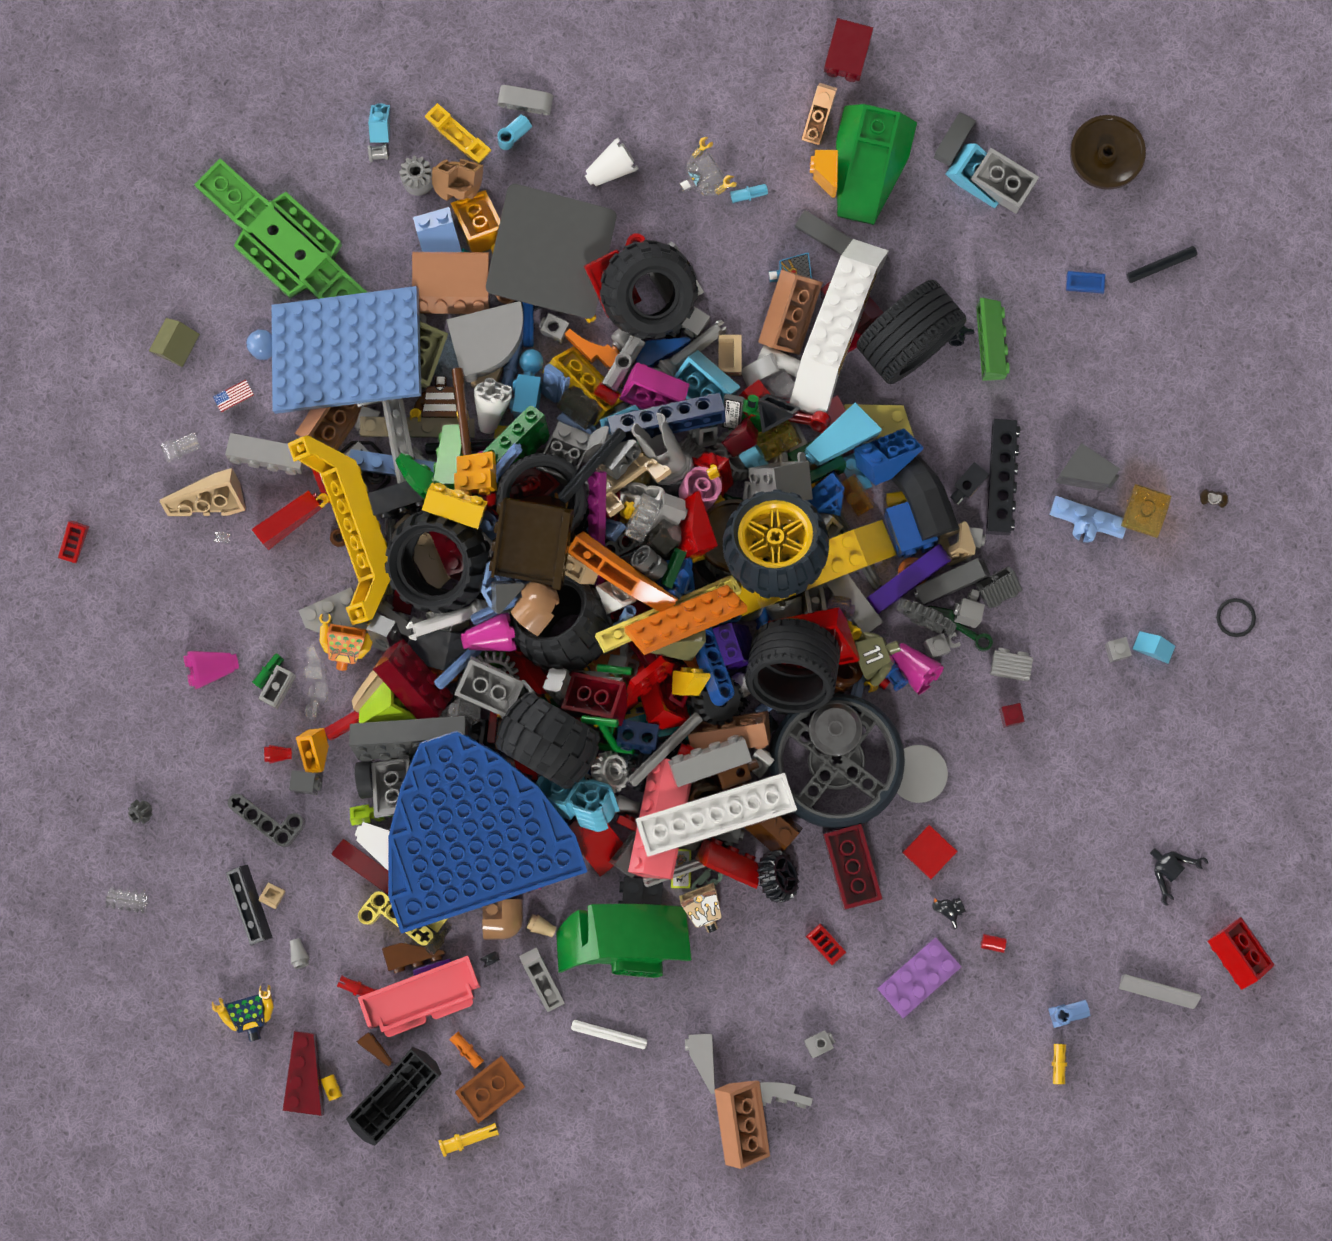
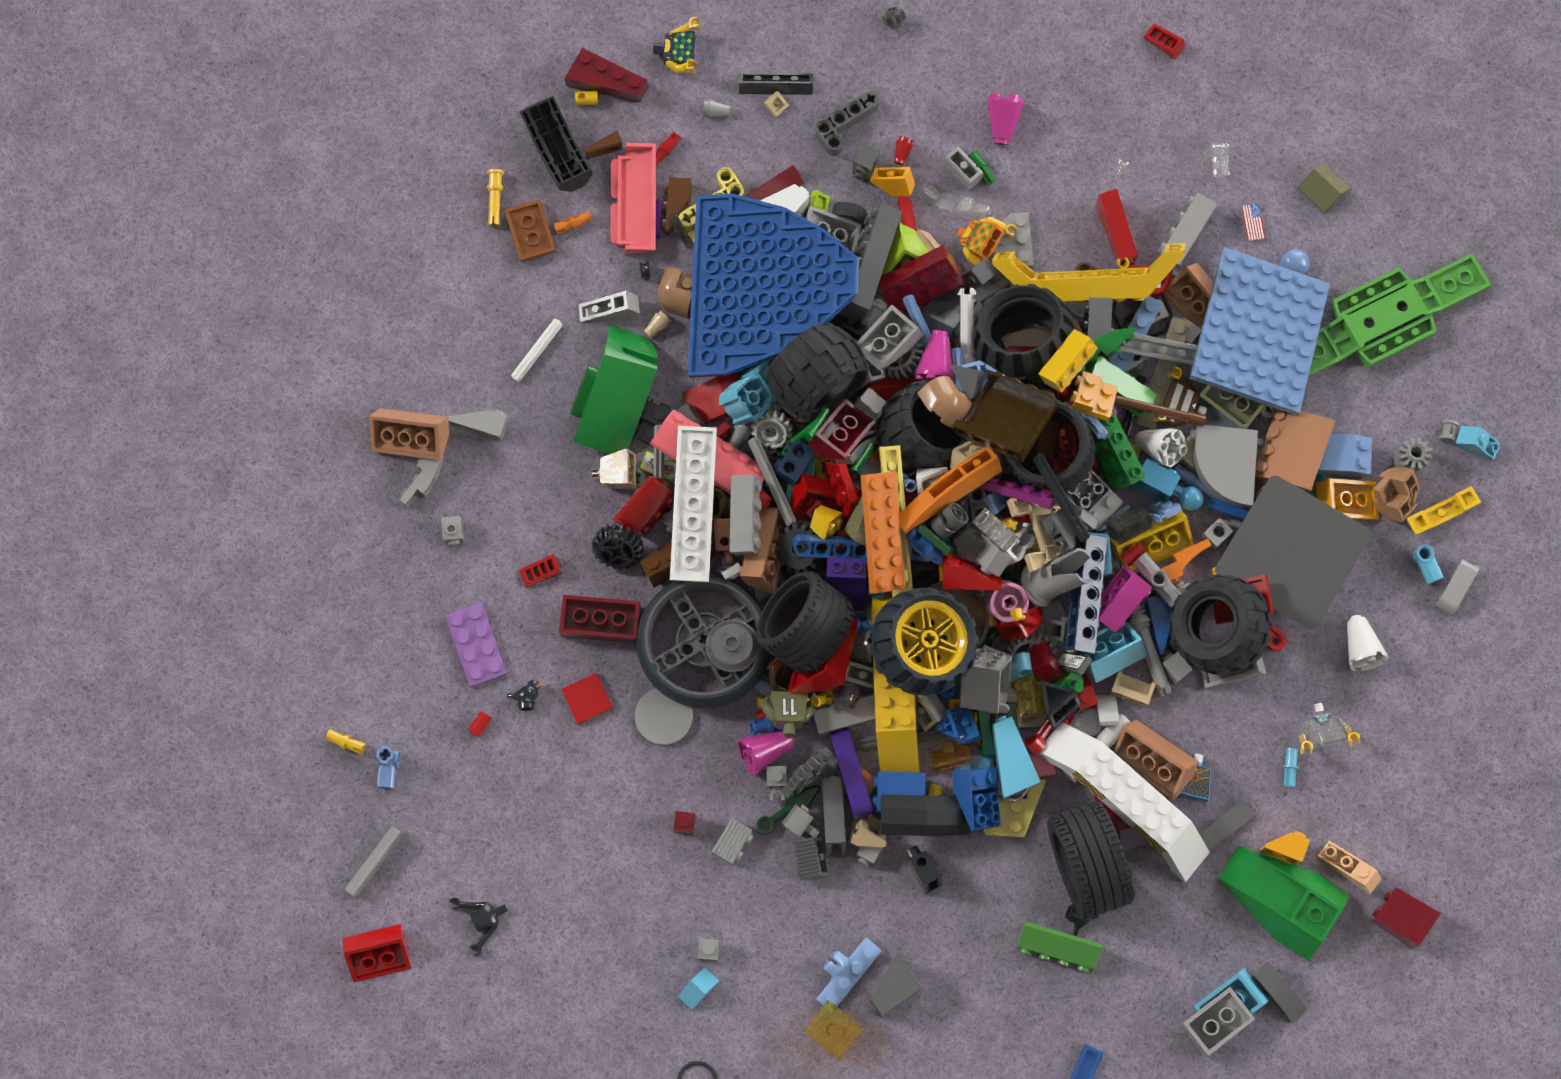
camera: 110 degrees right, 5 degrees down
(214, 493) = (1166, 174): tan wedge -> none
(995, 525) = (875, 878): black brick -> none

